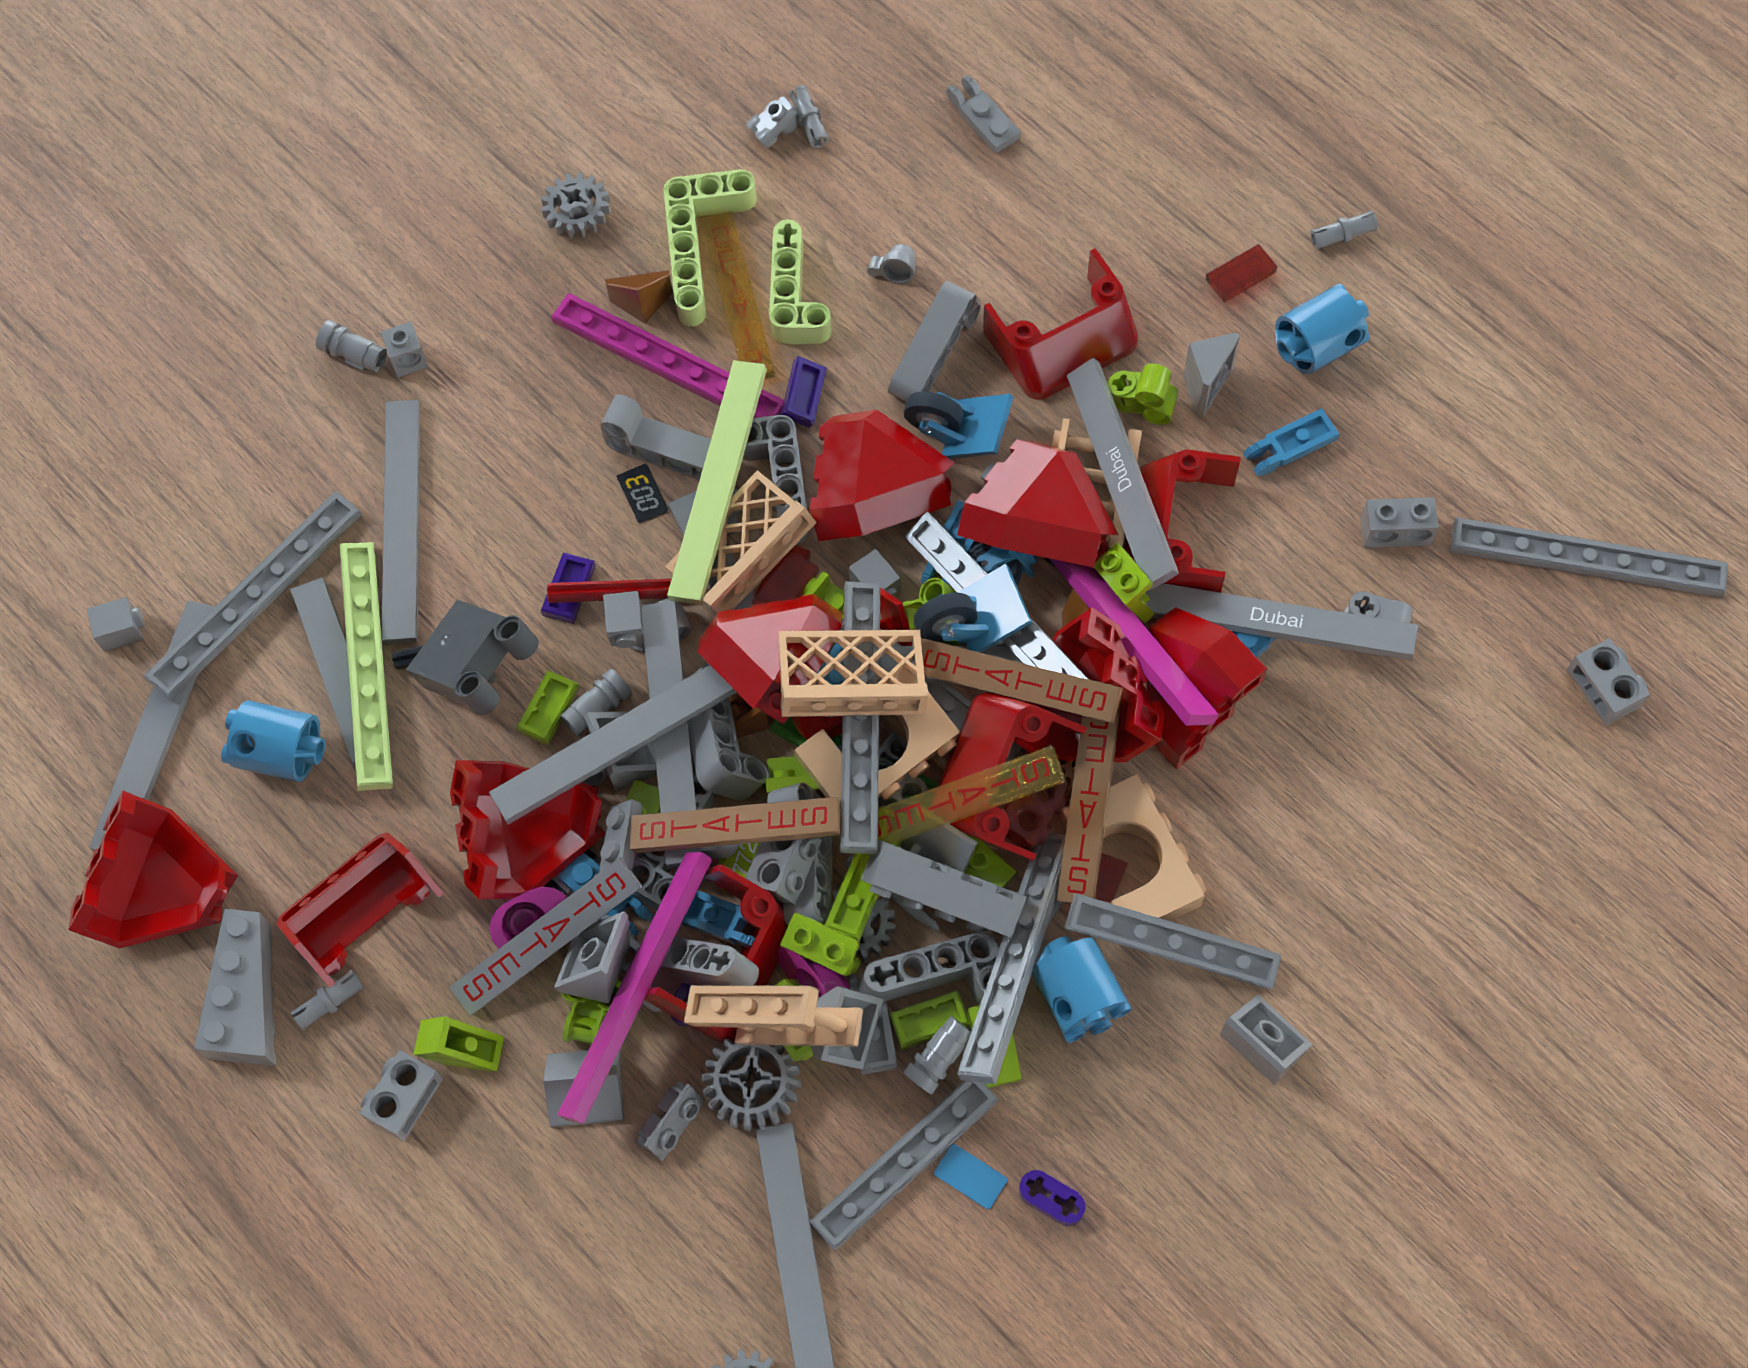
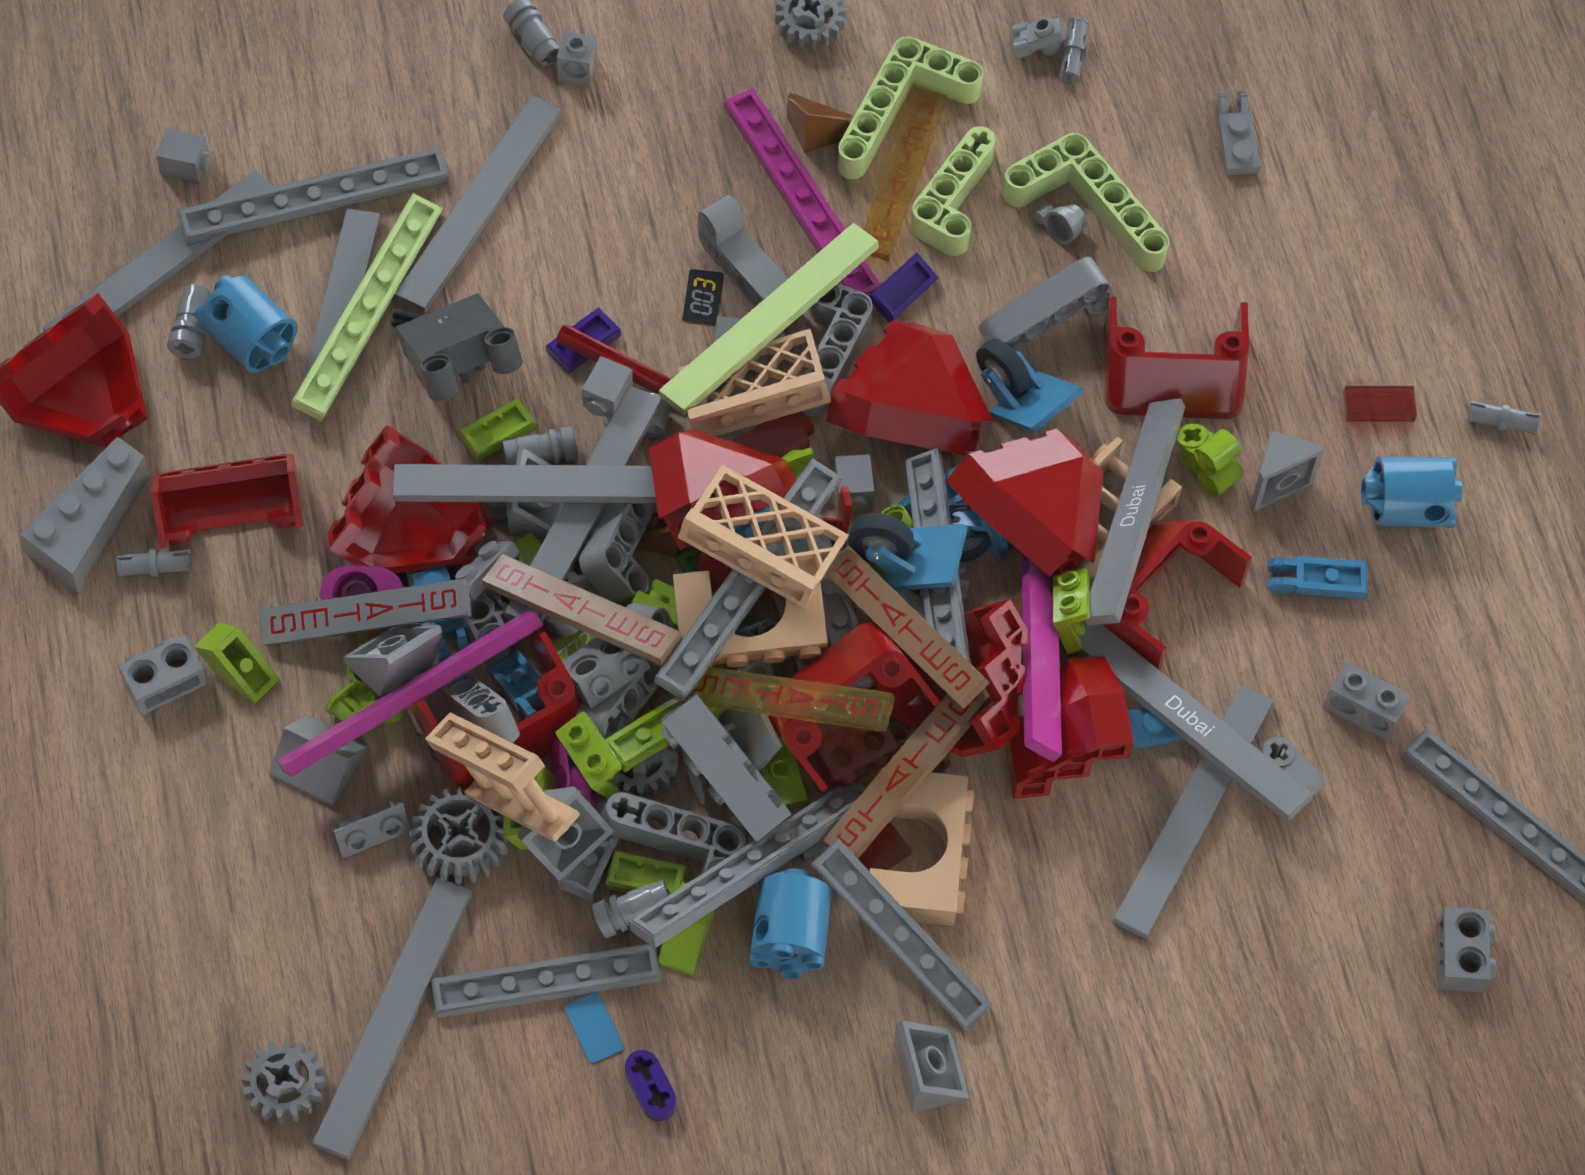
camera: 25 degrees right, 5 degrees down
(222, 780) = (186, 334): none -> light grey axle
(906, 227) = (1094, 192): none -> yellowish green beam
(1327, 707) = (1187, 822): none -> light grey tile

